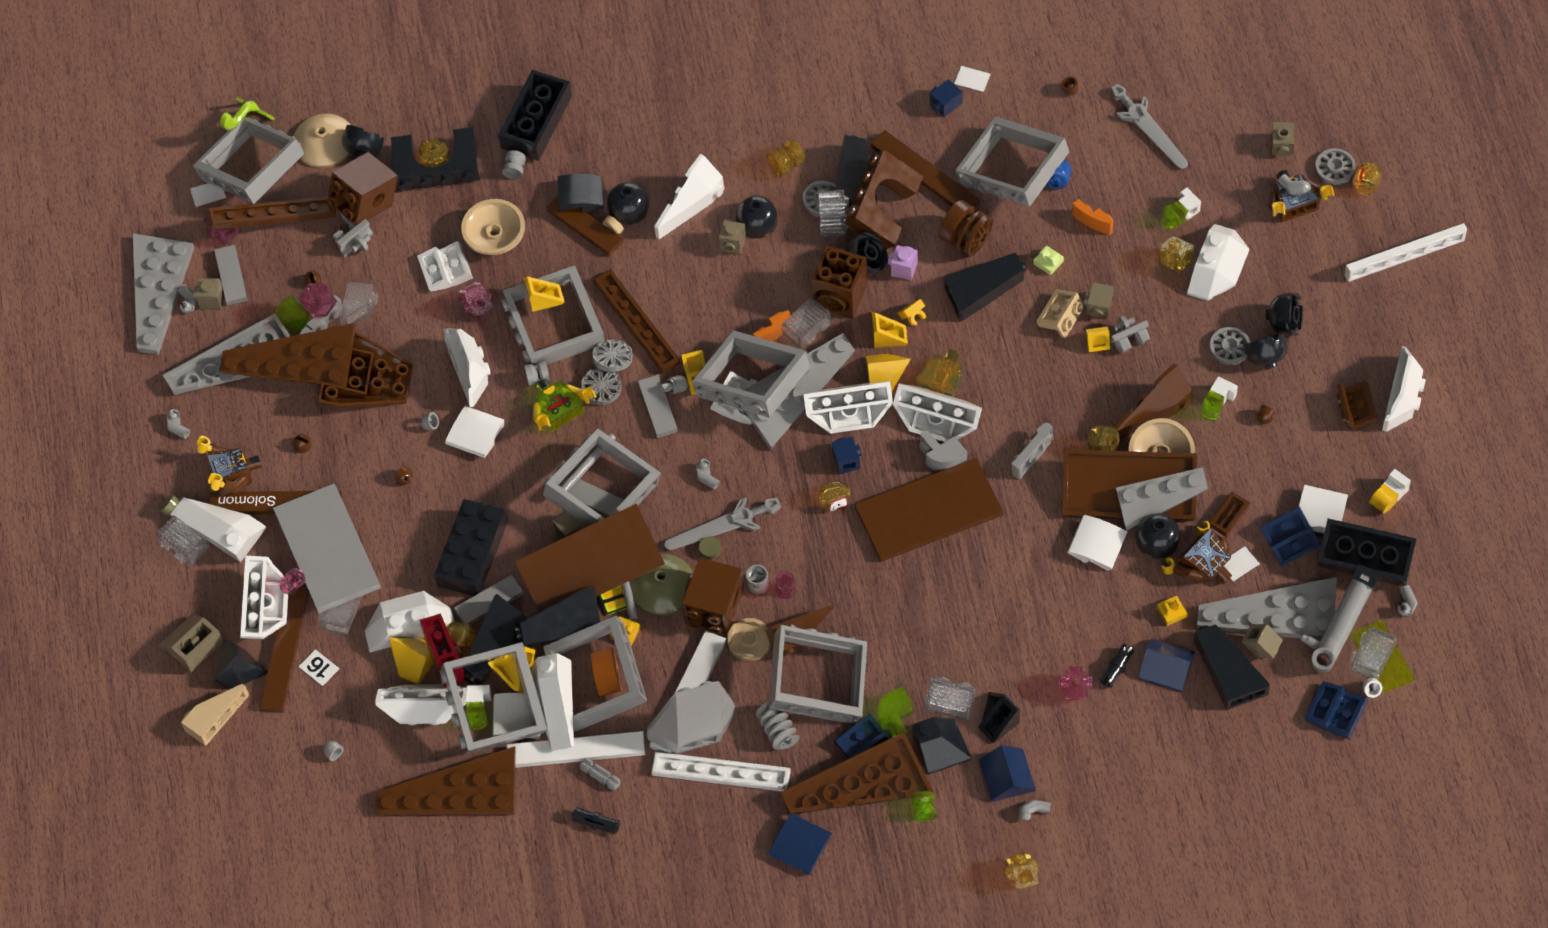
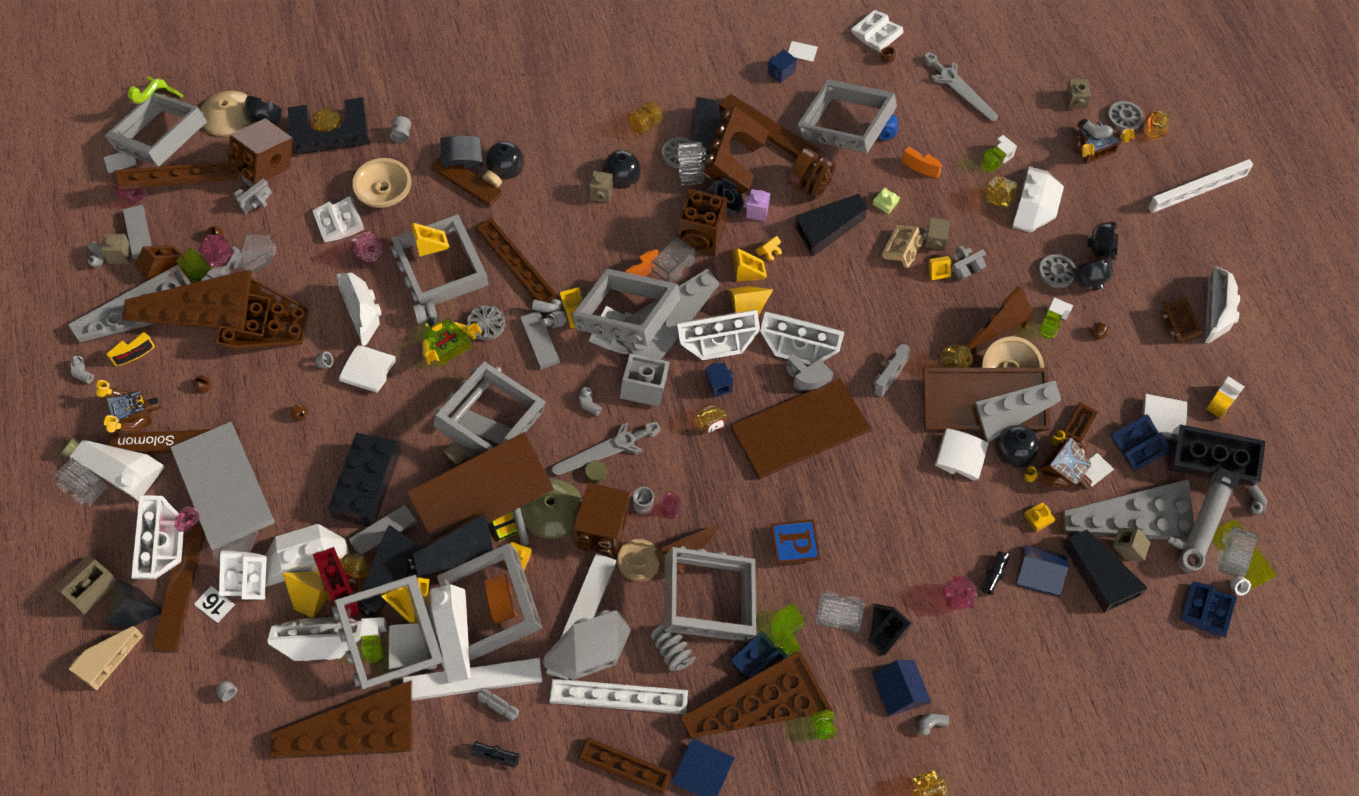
camera: 10 degrees left, 0 degrees up
(158, 275) = (68, 232): light grey wing -> none
(223, 408) = (126, 353): none -> slope
(253, 307) = (157, 259): none -> reddish brown slope
(348, 638) = (242, 574): none -> white slope
(535, 114) = (419, 86): black brick -> none
(612, 356) = (495, 295): light grey wheel -> none
(667, 371) = (546, 307): none -> light grey arm
(697, 193) = (567, 150): white wedge -> none
(723, 837) = (625, 766): none -> reddish brown tile
(766, 453) = (644, 380): none -> light grey slope
(911, 626) = (795, 542): none -> piece
(940, 743) = (833, 659): black slope -> none
(941, 374) = (801, 302): clear yellow torso -> none
(1060, 55) = (877, 30): none -> white slope

